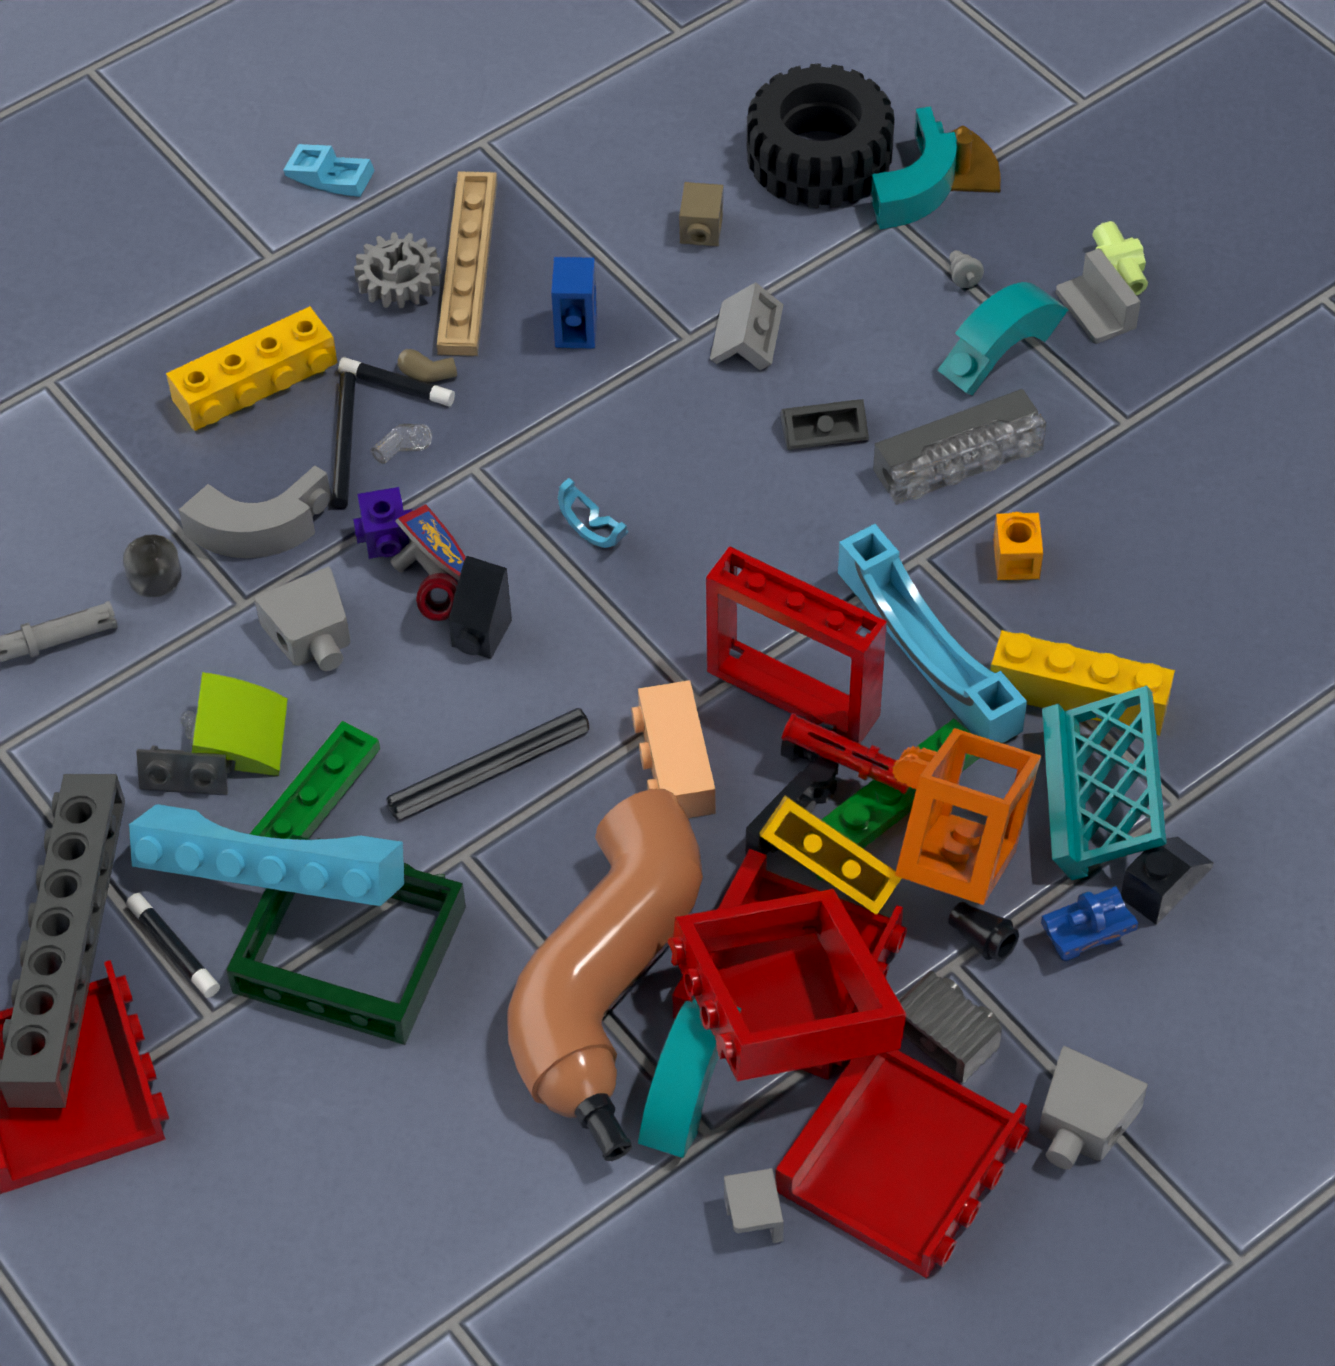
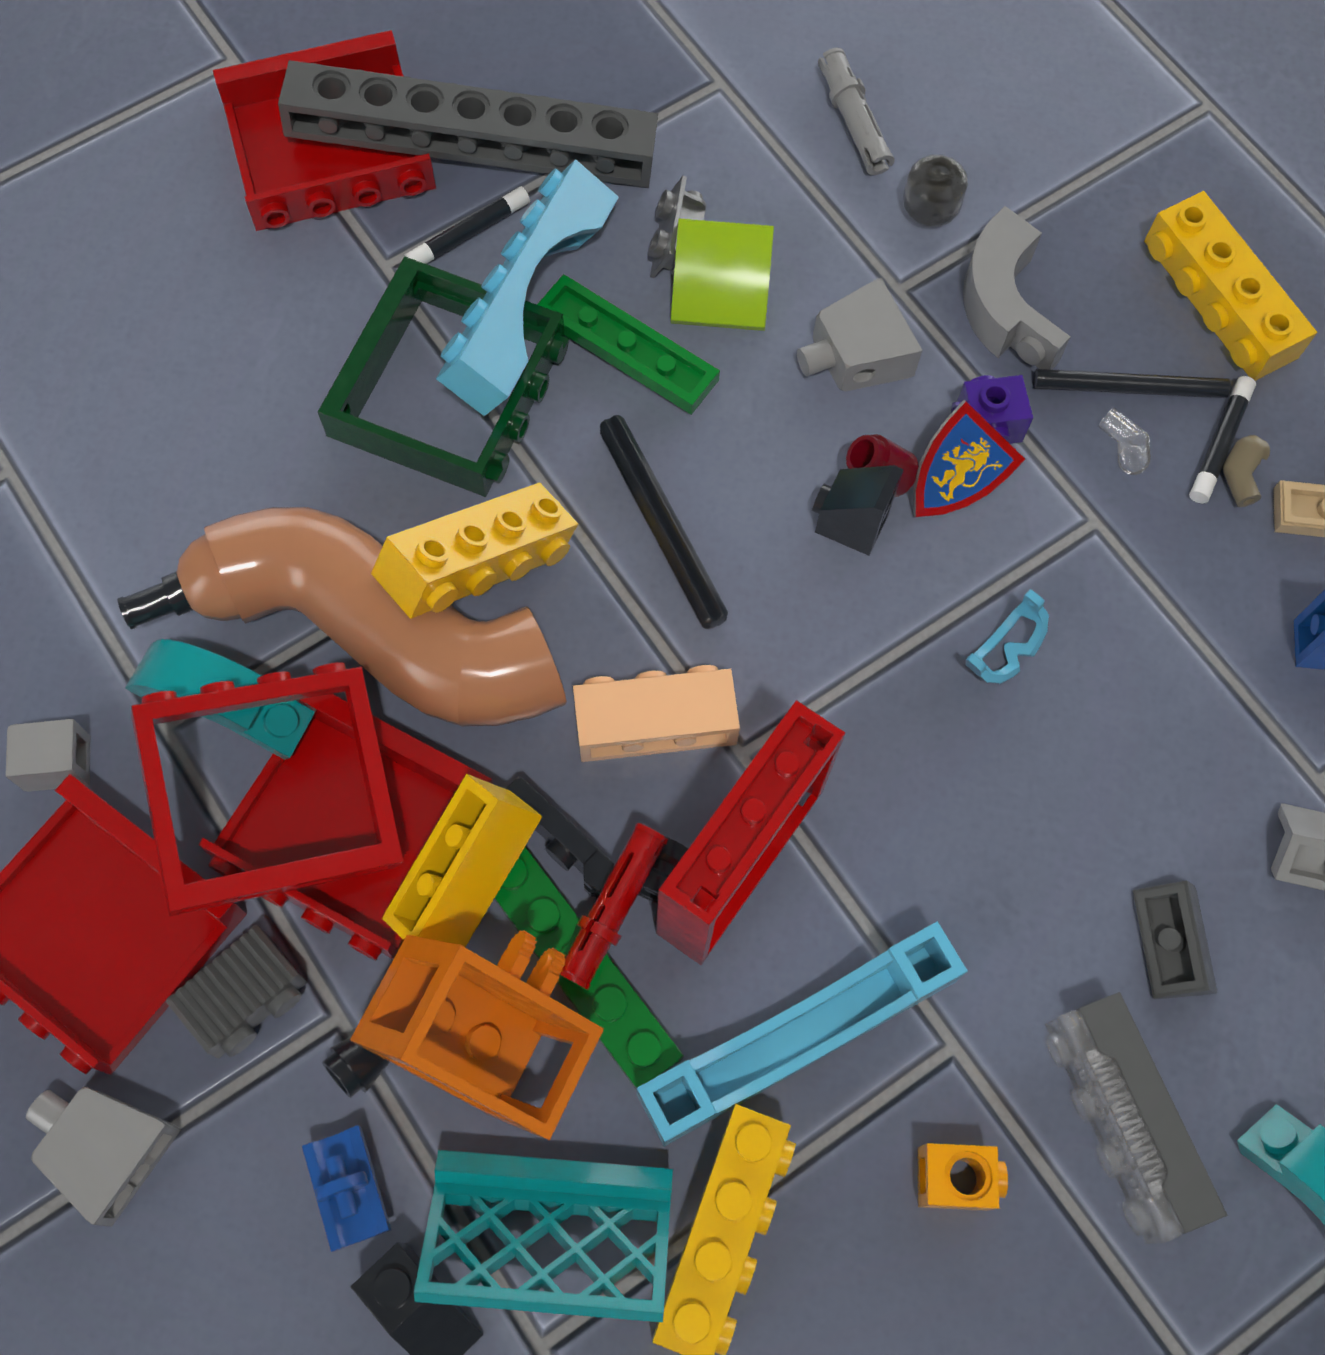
camera: 90 degrees right, 15 degrees up
(548, 864) = (473, 550): none -> yellow brick

